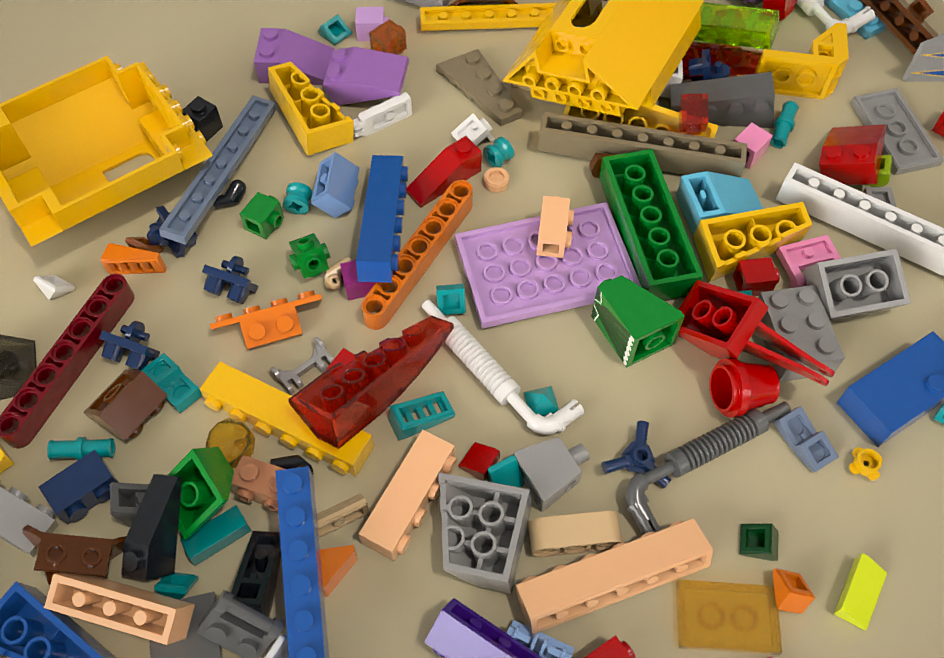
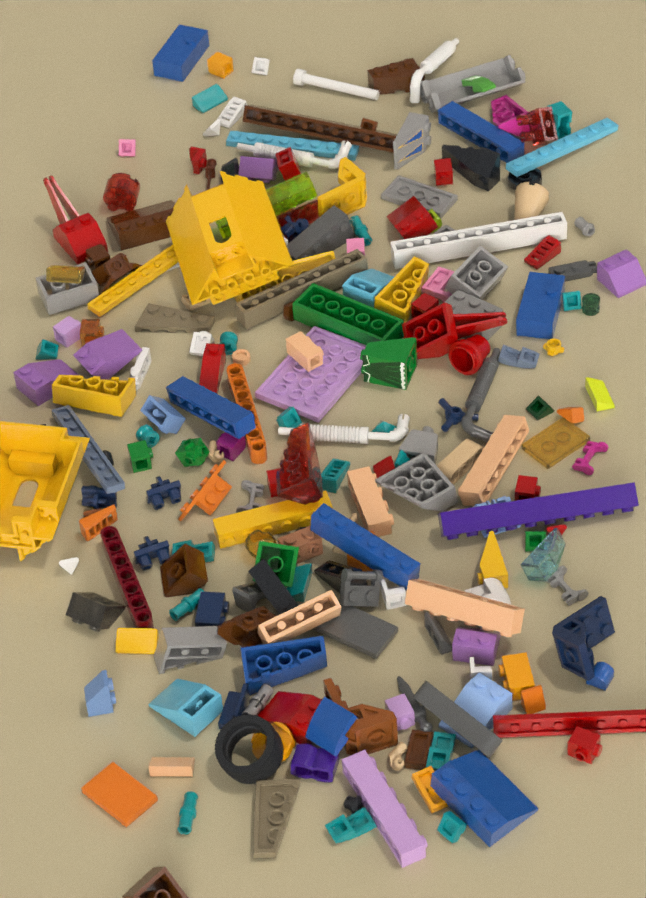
camera: 40 degrees left, 15 degrees down
(693, 113) = (316, 251): clear red brick -> none

